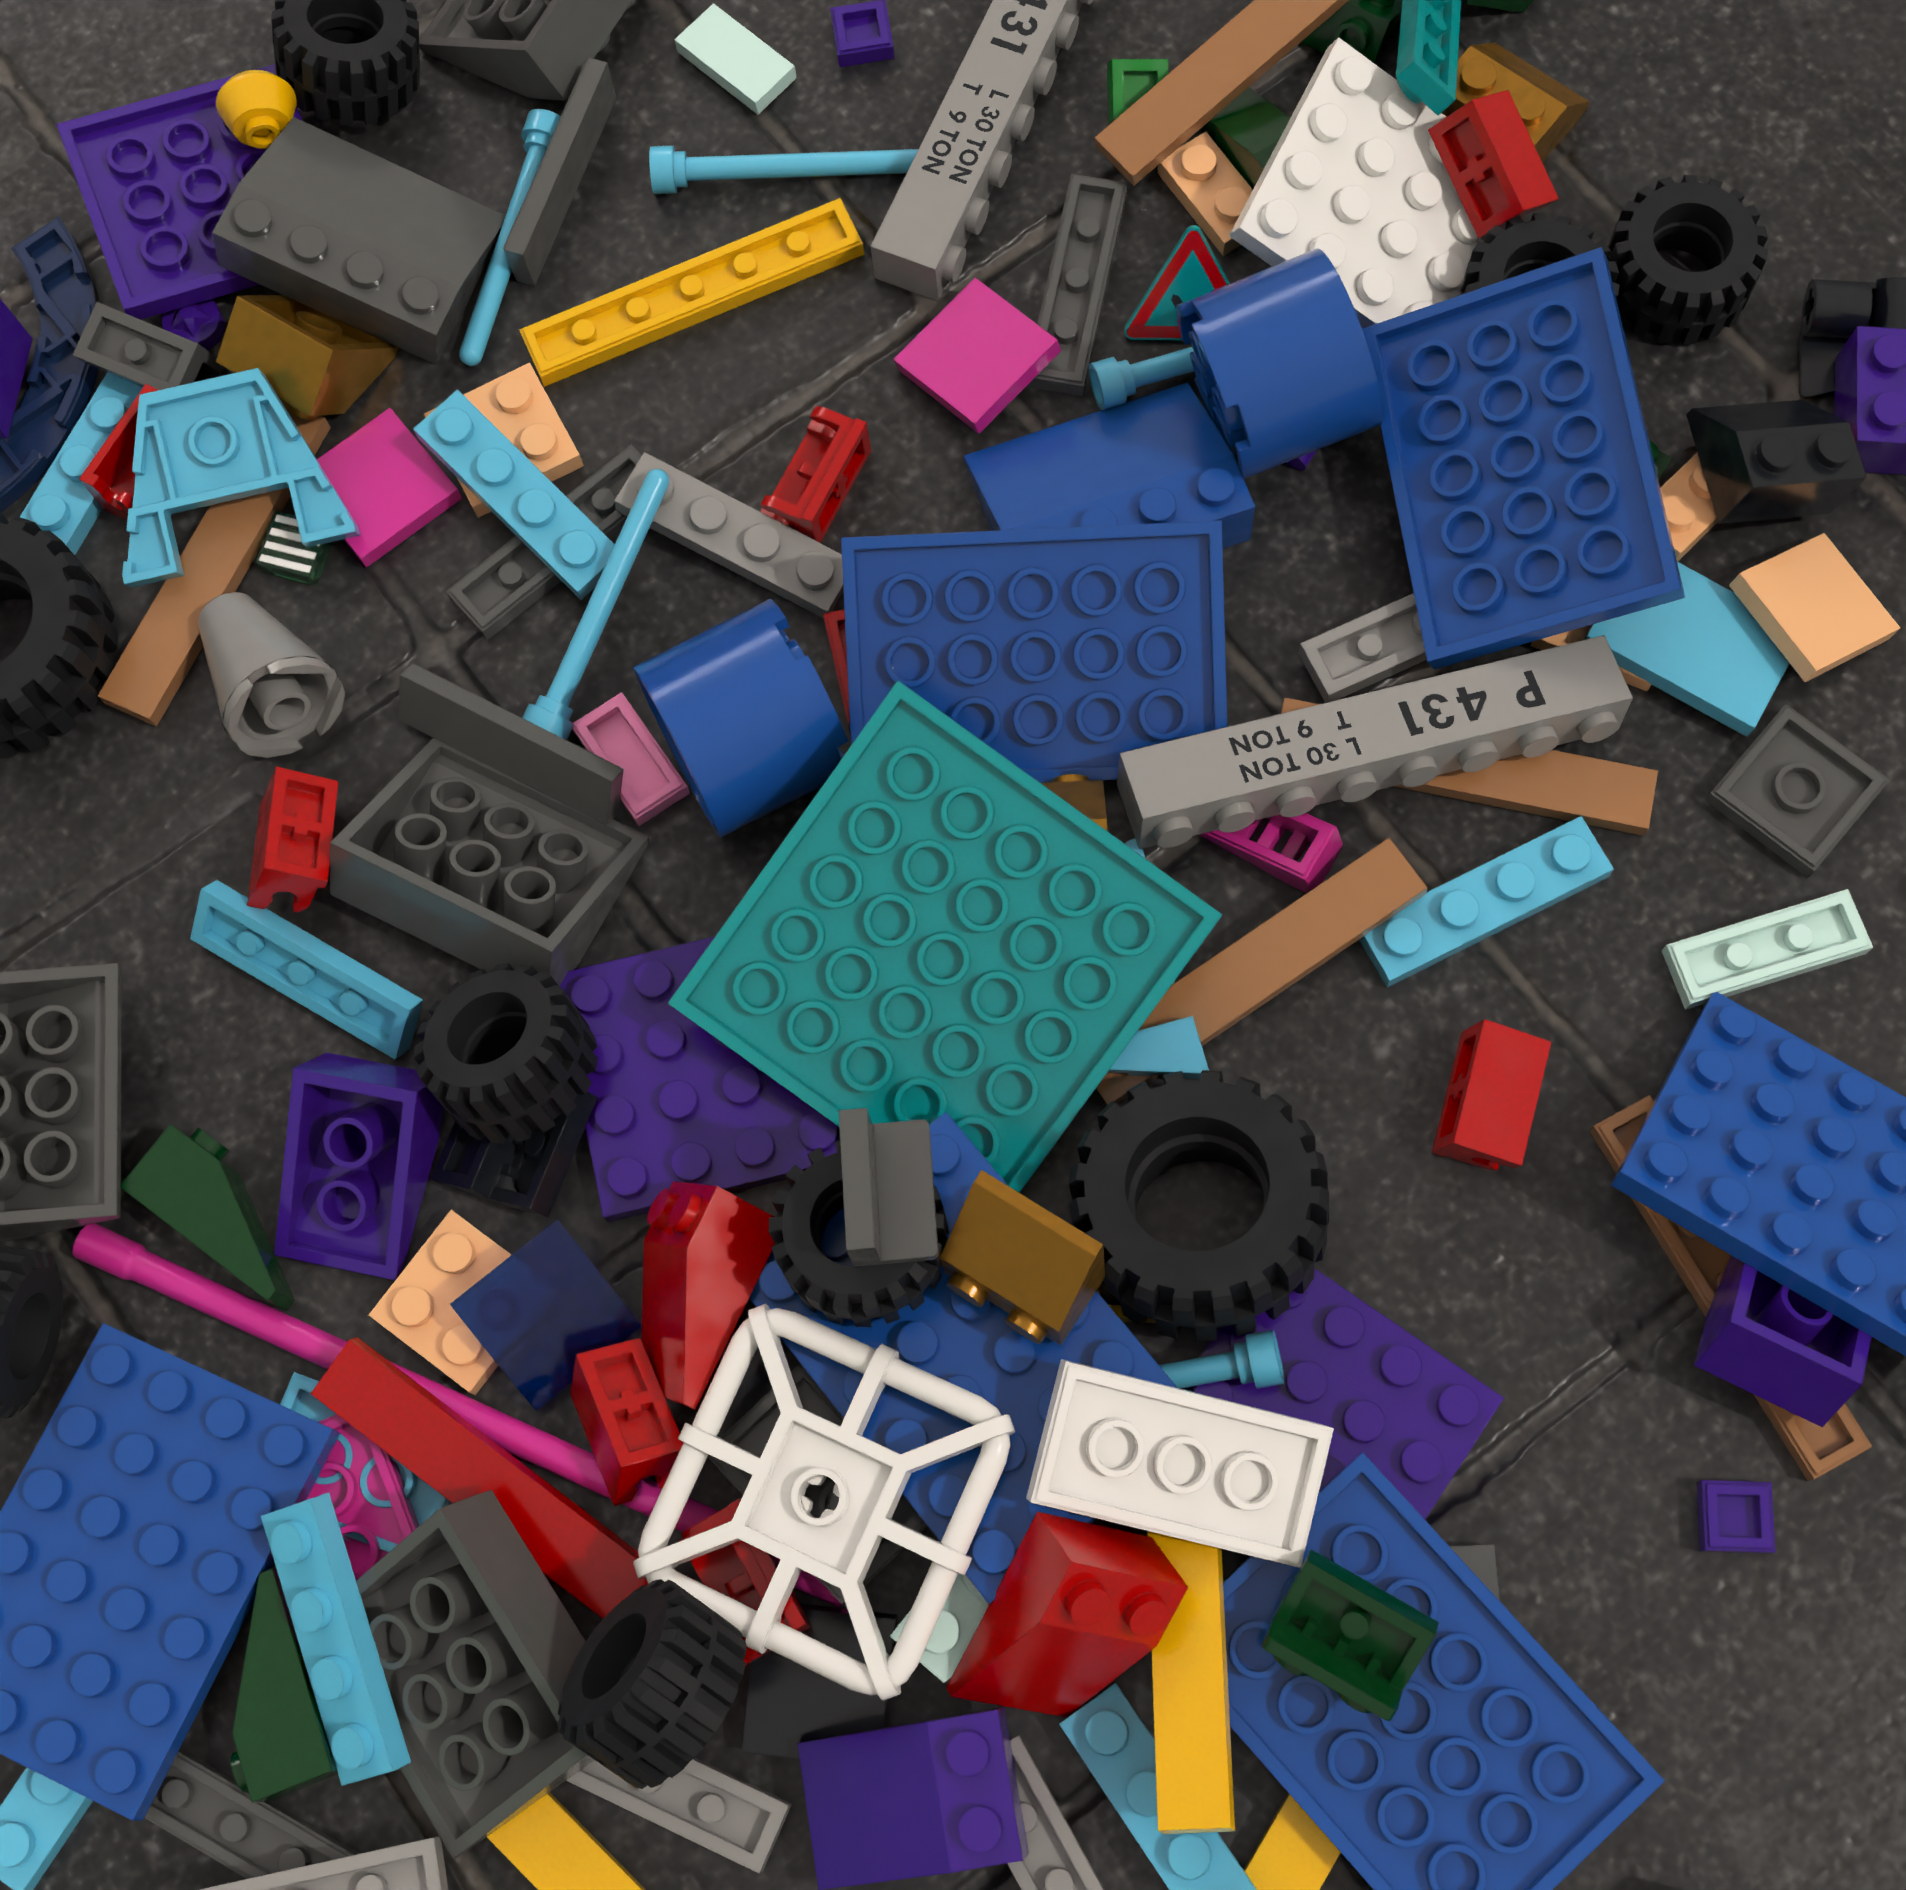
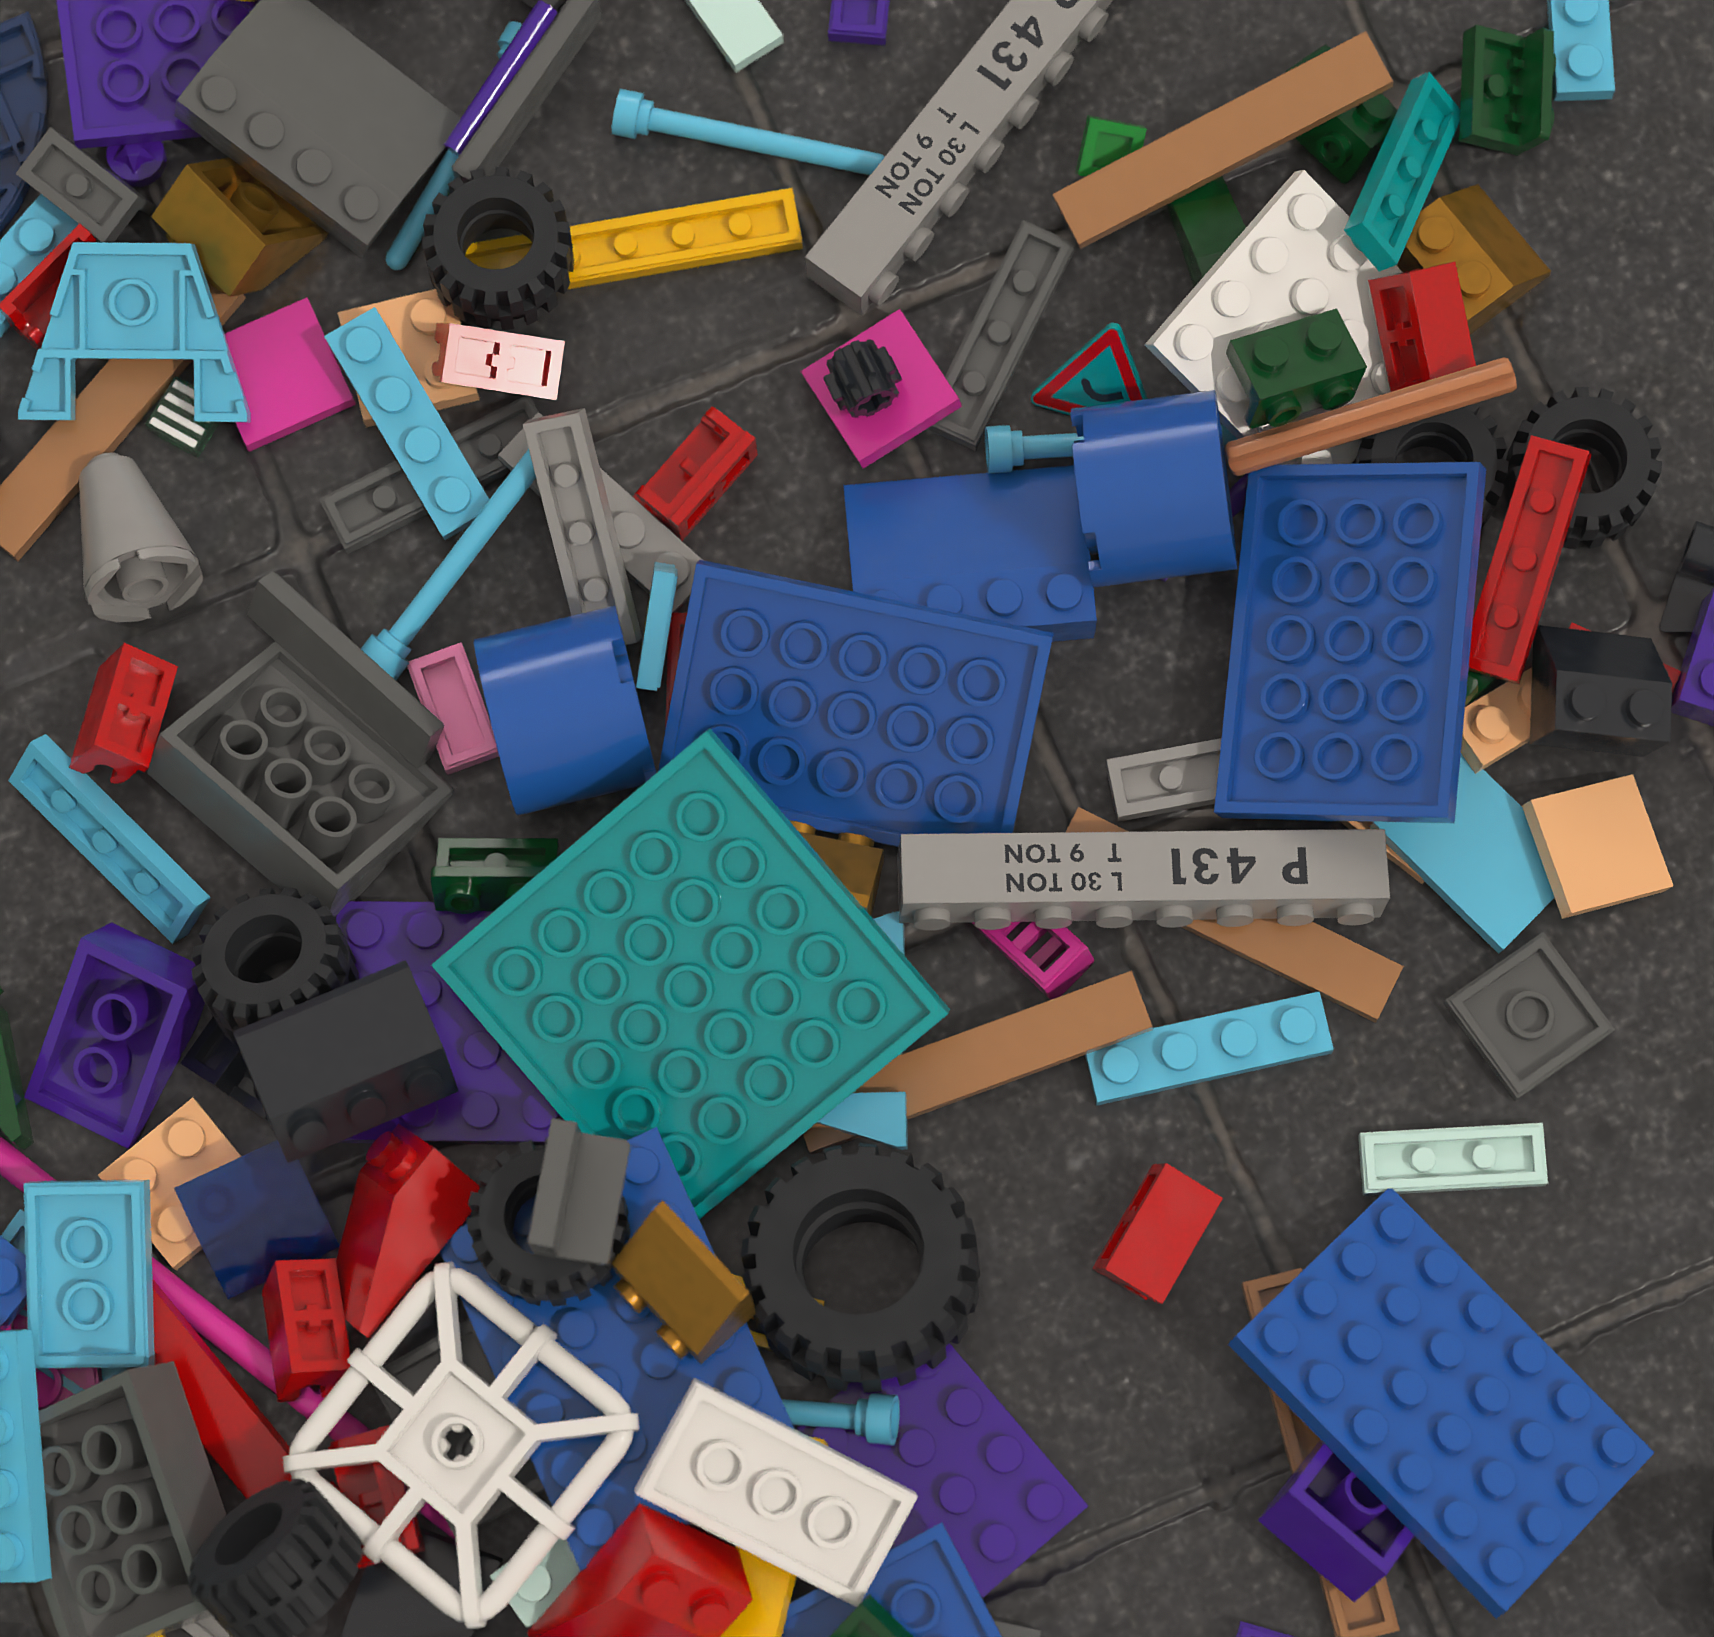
camera: 10 degrees right, 5 degrees up
(379, 1418) = (89, 1273): none -> medium azure tile
(532, 154) = (501, 75): none -> dark purple bar
(561, 268) = (489, 205): none -> black tyre
(592, 409) = (498, 360): none -> hinge
(601, 1122) = (346, 1061): none -> black slope
(694, 907) = (486, 871): none -> dark green bracket
(705, 524) = (580, 517): none -> light grey plate
(815, 616) = (657, 626): none -> medium azure tile
(958, 339) = (862, 378): none -> black gear
(1207, 188) = (1153, 267): light nougat plate -> none
(1386, 221) = (1297, 368): none -> dark green bracket
(1480, 242) = (1371, 416): none -> nougat axle
(1667, 335) = (1526, 558): none -> red plate

